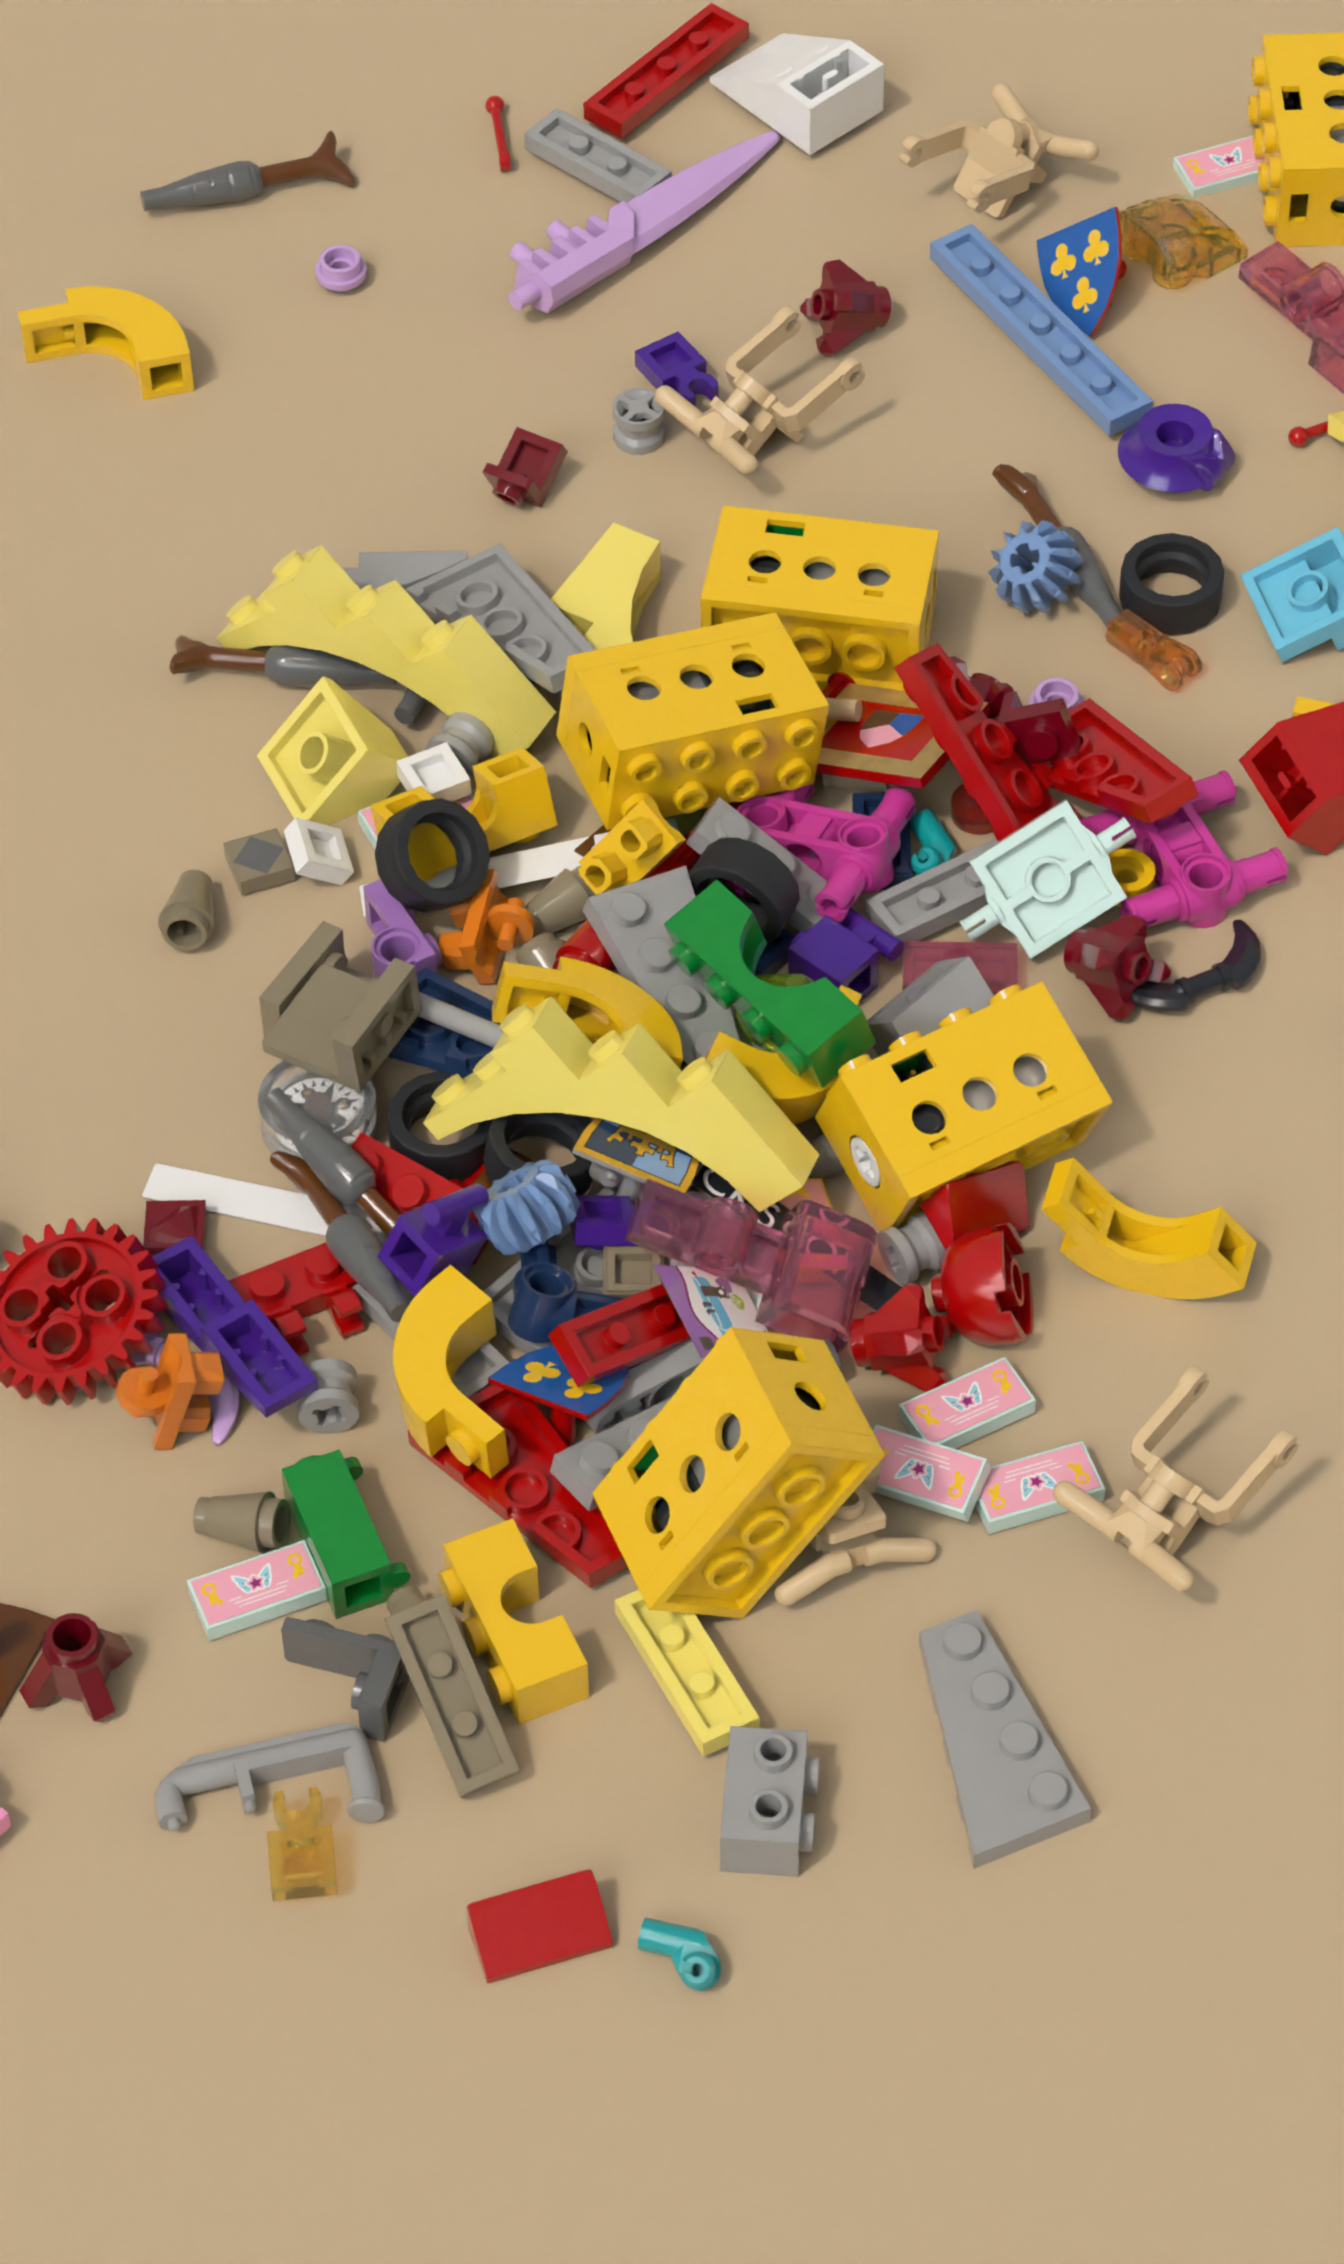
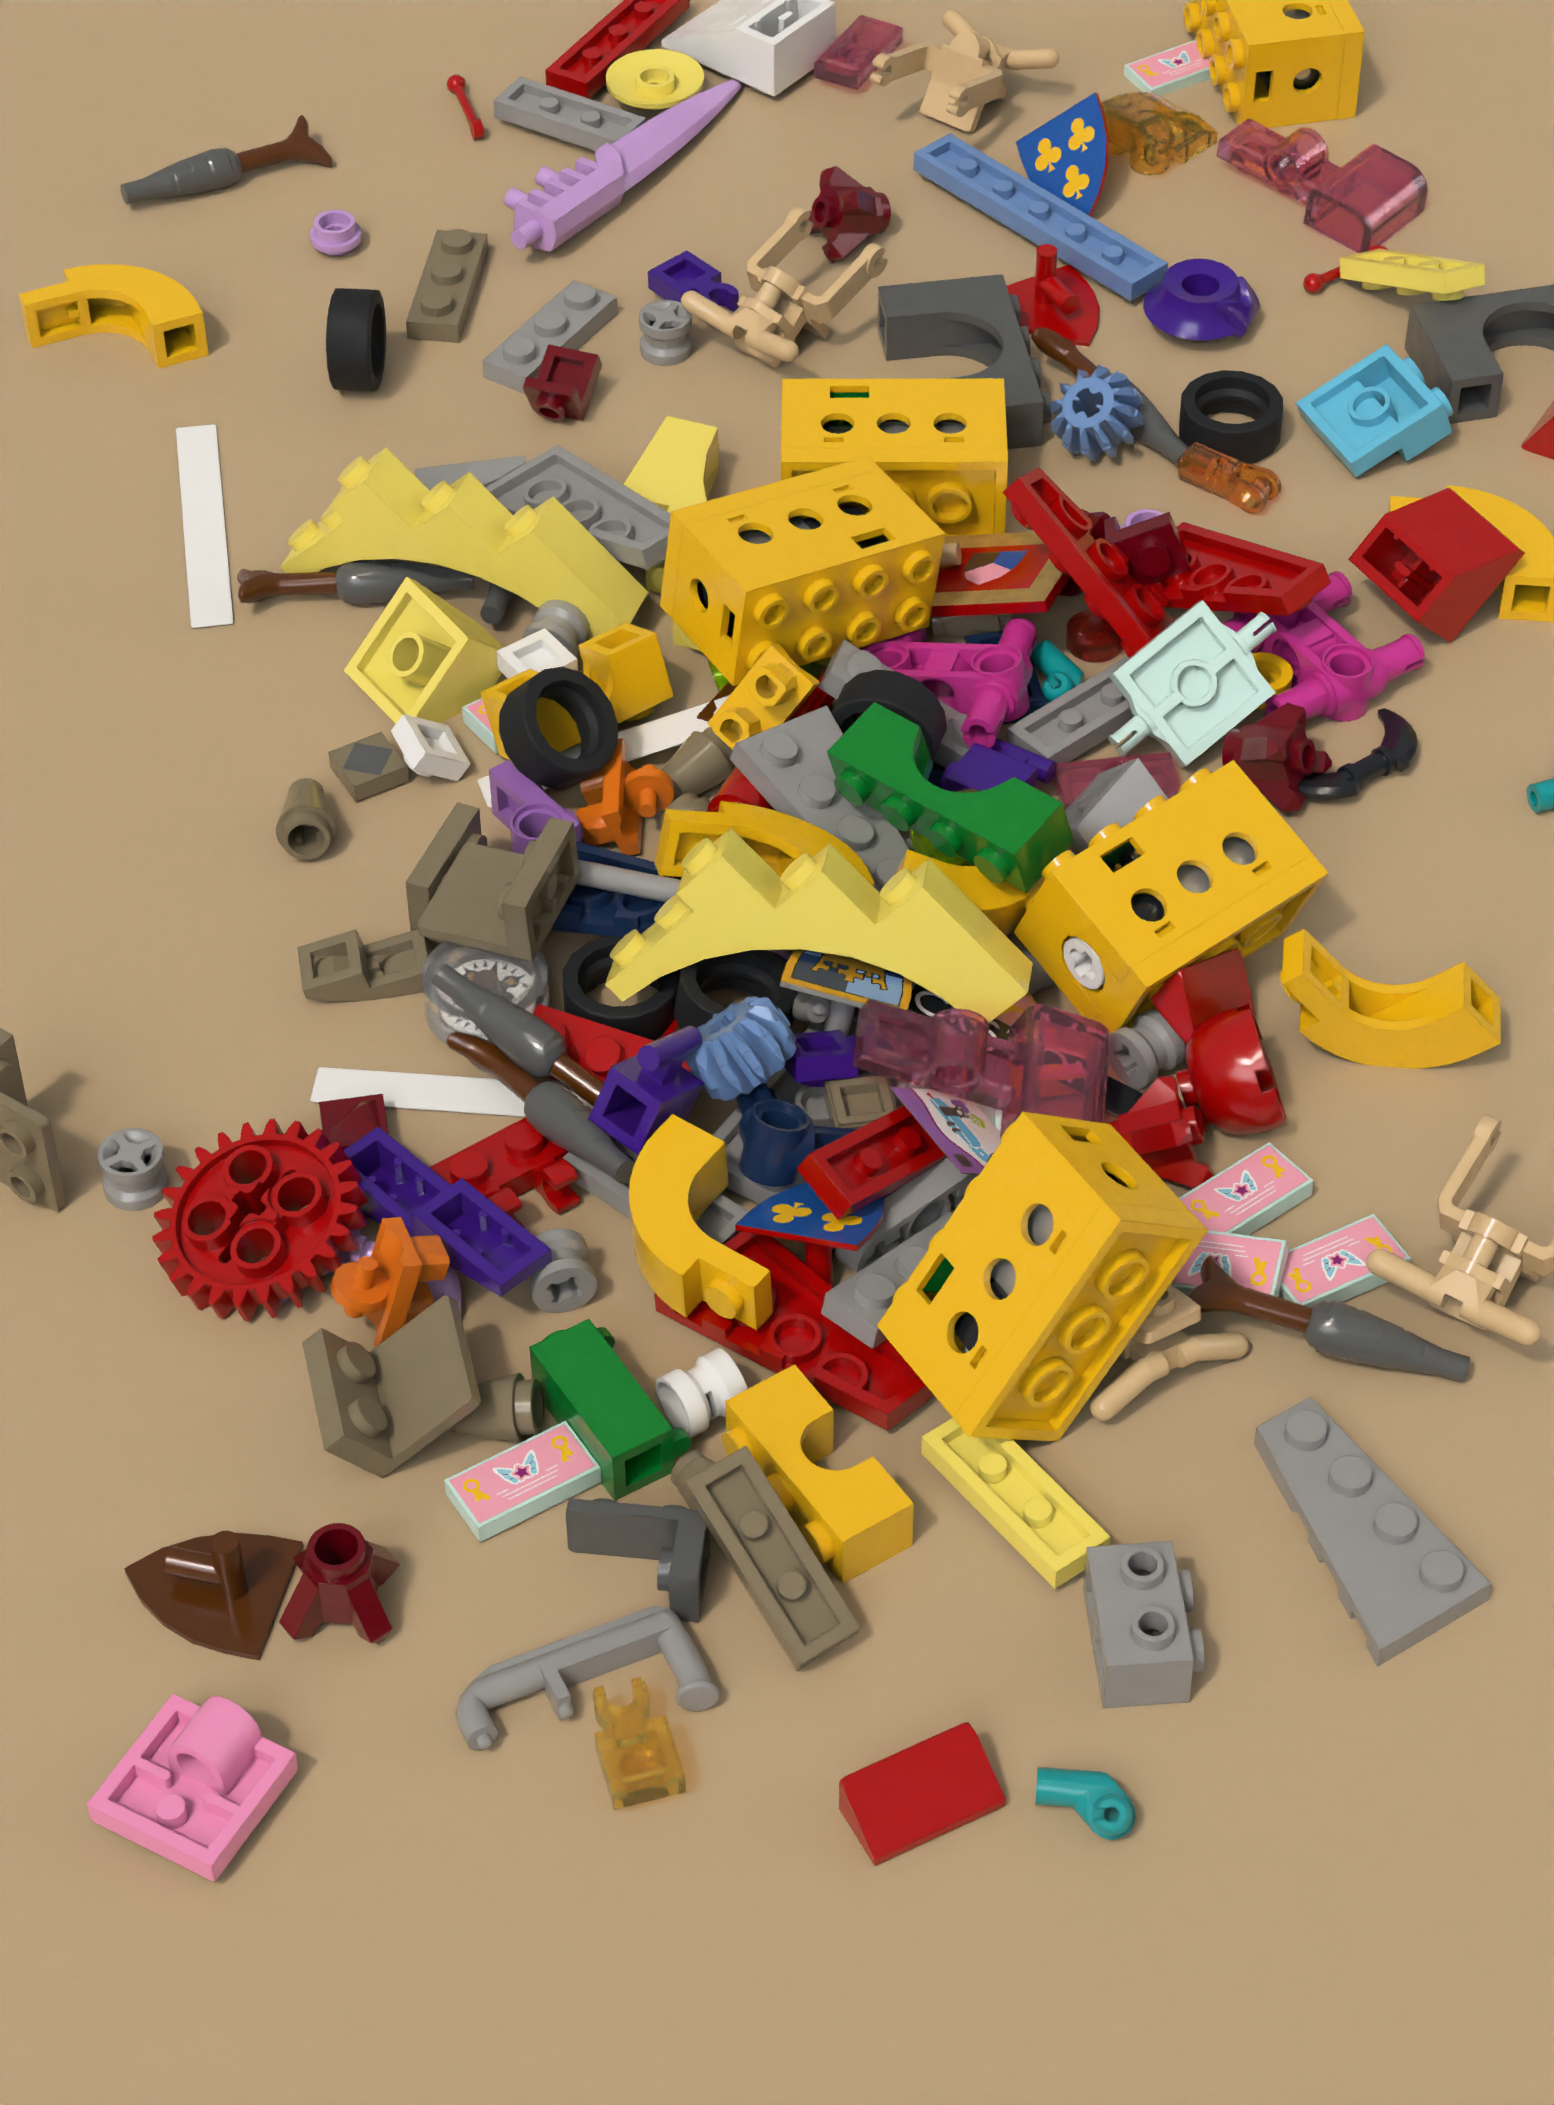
camera: 10 degrees left, 5 degrees down
(152, 1498) = (399, 1395): none -> dark tan bracket
(155, 581) = (204, 527): none -> white sticker
(205, 1072) = (350, 971): none -> dark tan slope
(332, 399) = (356, 339): none -> black tyre
(425, 1530) = (699, 1394): none -> white wheel
(439, 341) = (447, 286): none -> dark tan plate
(530, 405) = (563, 322): none -> light grey plate
(691, 125) = (654, 78): none -> light yellow dish
(904, 112) = (852, 54): none -> clear pink plate
(942, 444) = (975, 322): none -> dark grey arch
(1008, 1545) = (1331, 1327): none -> dark grey piece
(1029, 430) = (1057, 299): none -> red shield

